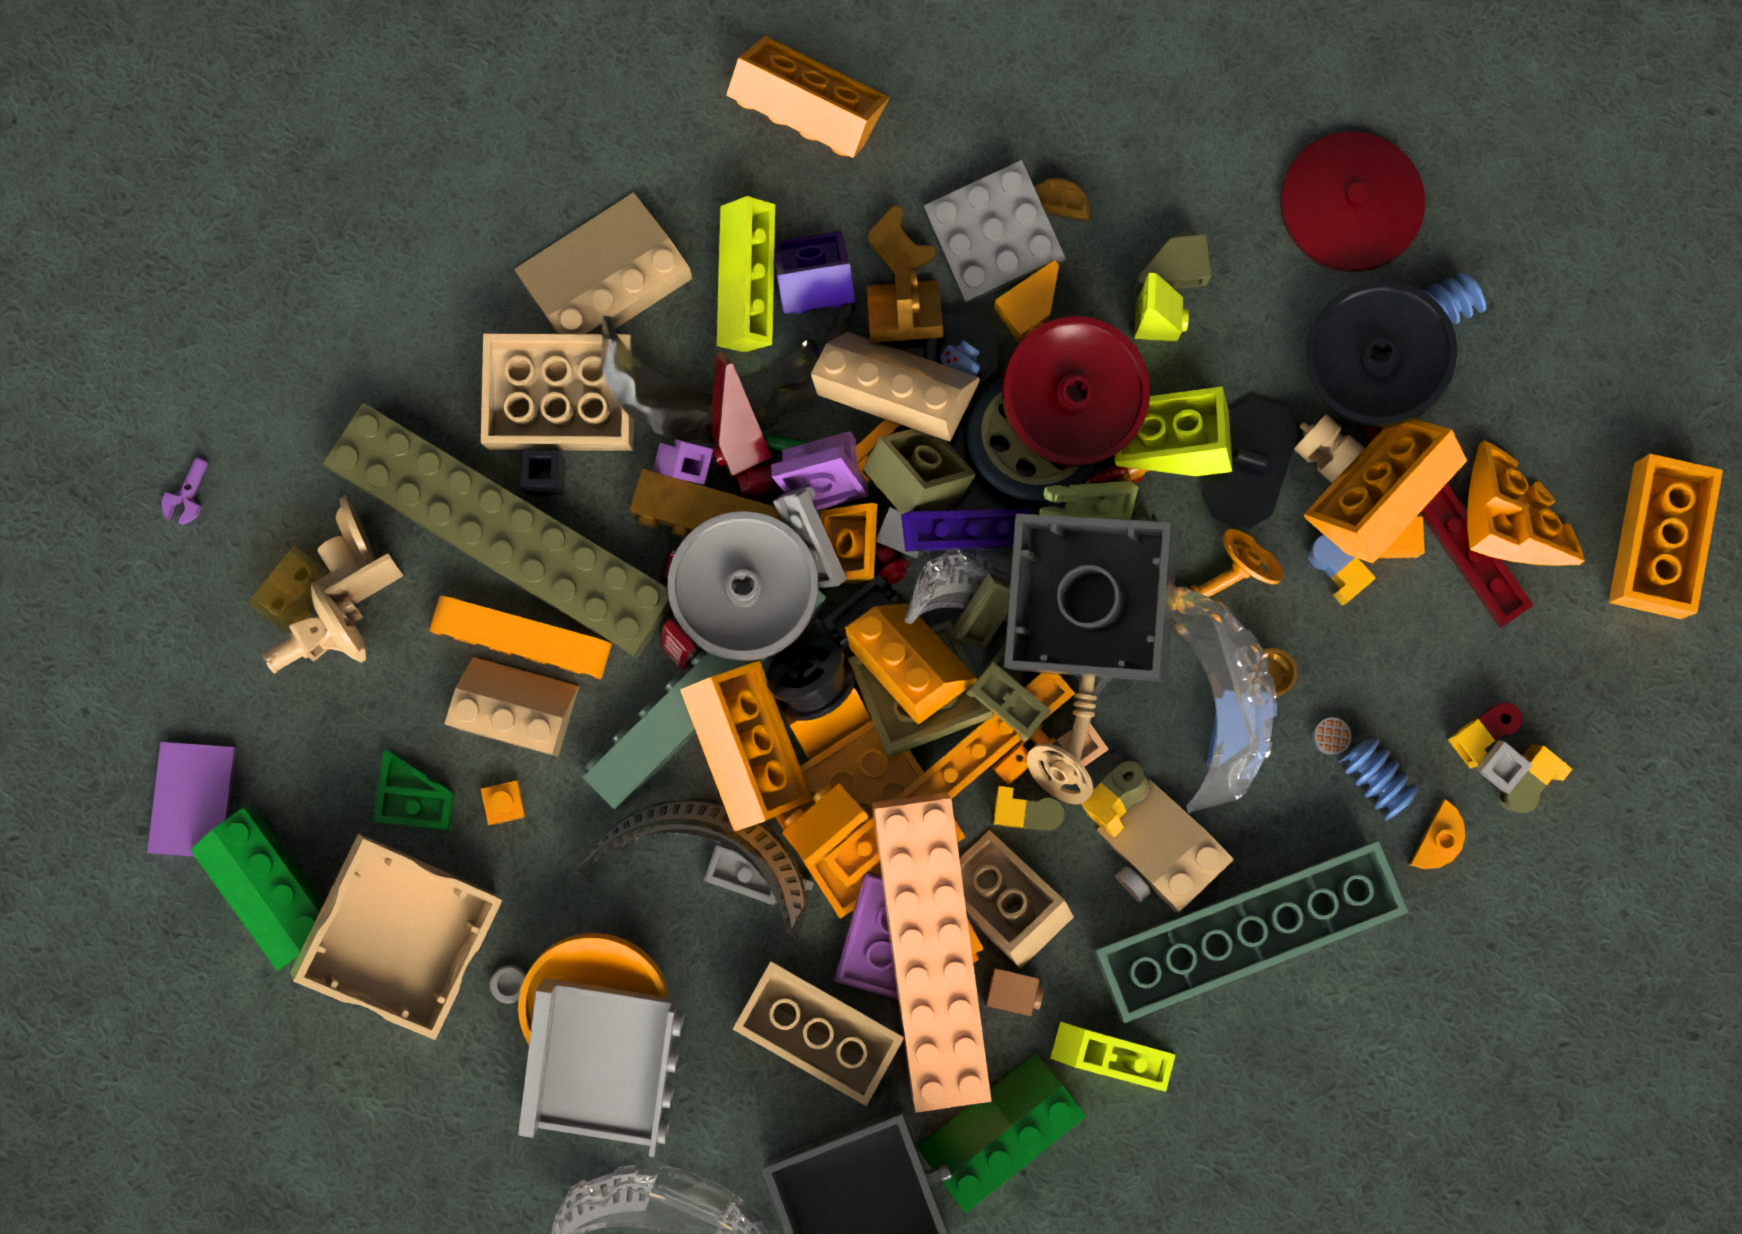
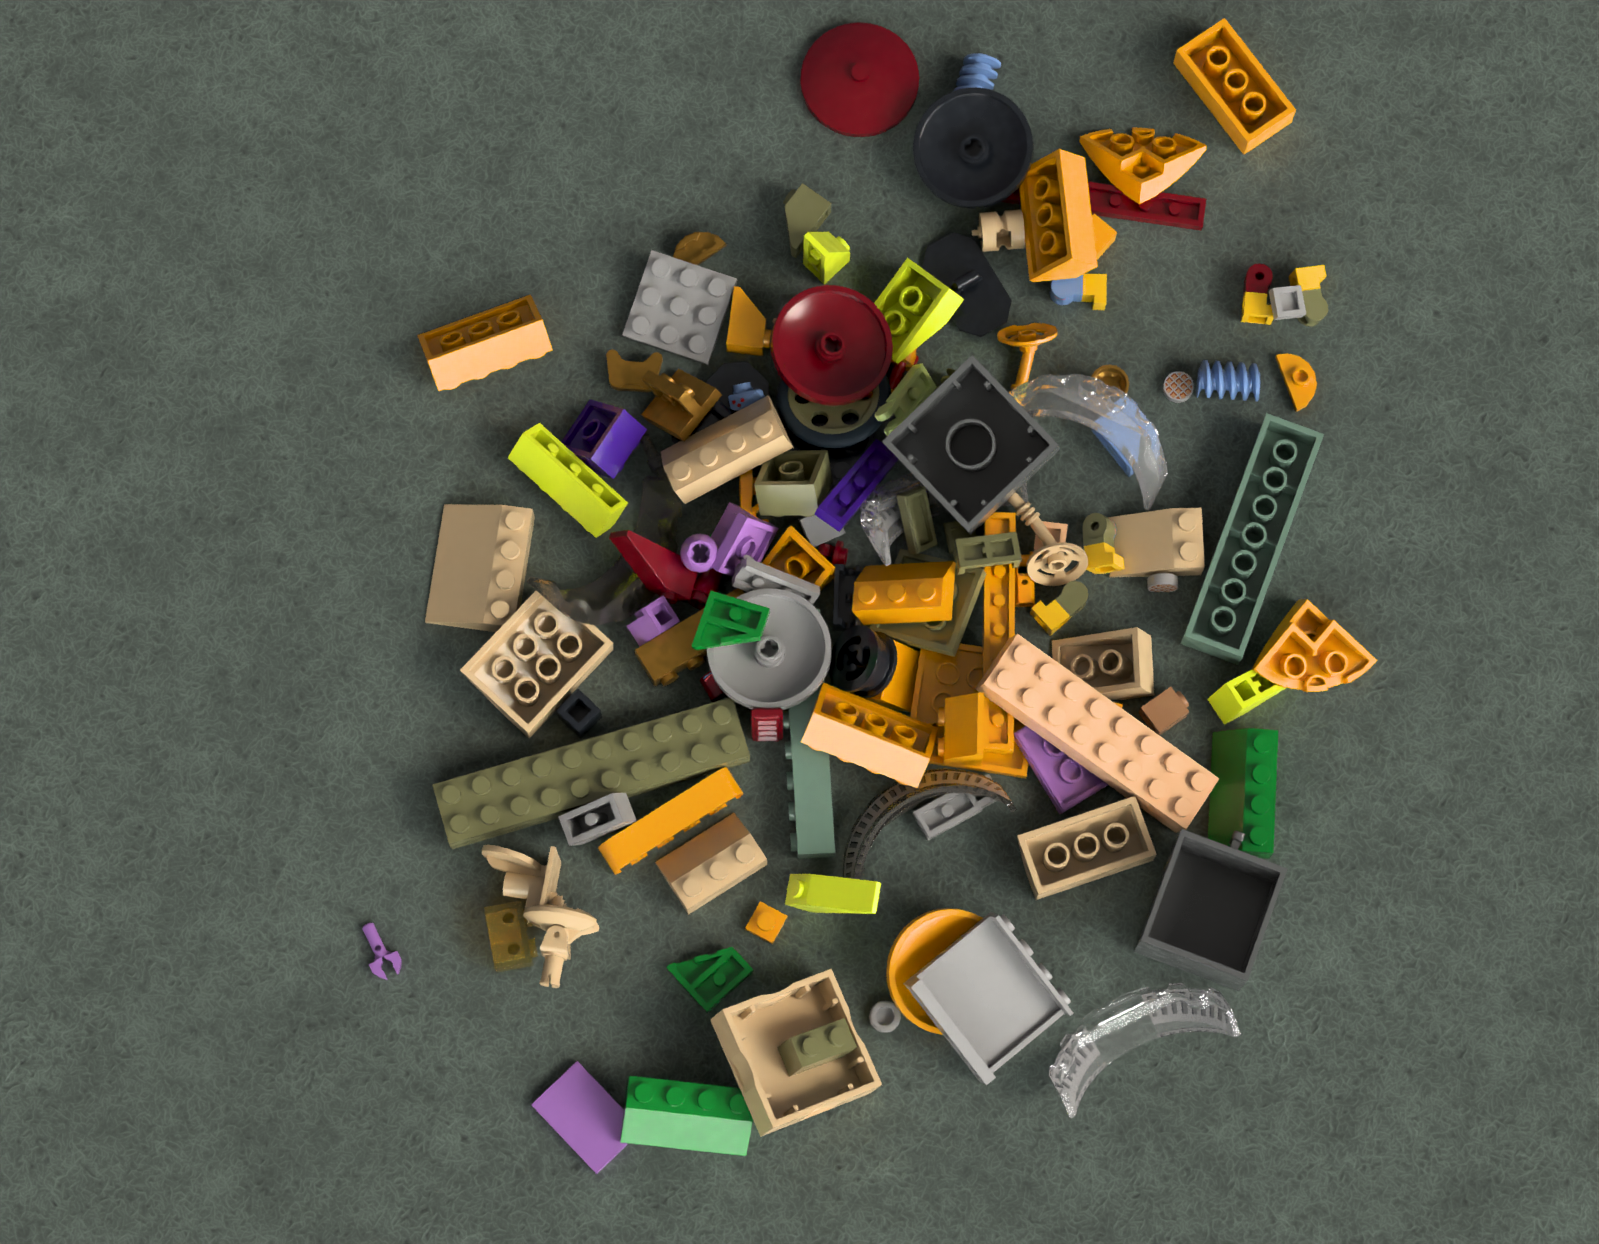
camera: 50 degrees left, 5 degrees down
(417, 951) = (816, 1047): none -> olive brick
(459, 572) = (597, 819): none -> light grey brick
(569, 841) = (832, 894): none -> neon yellow slope
(732, 528) = (729, 622): none -> green wing
(776, 444) = (698, 552): none -> medium lavender piece
(1190, 1079) = (1311, 652): none -> light orange brick

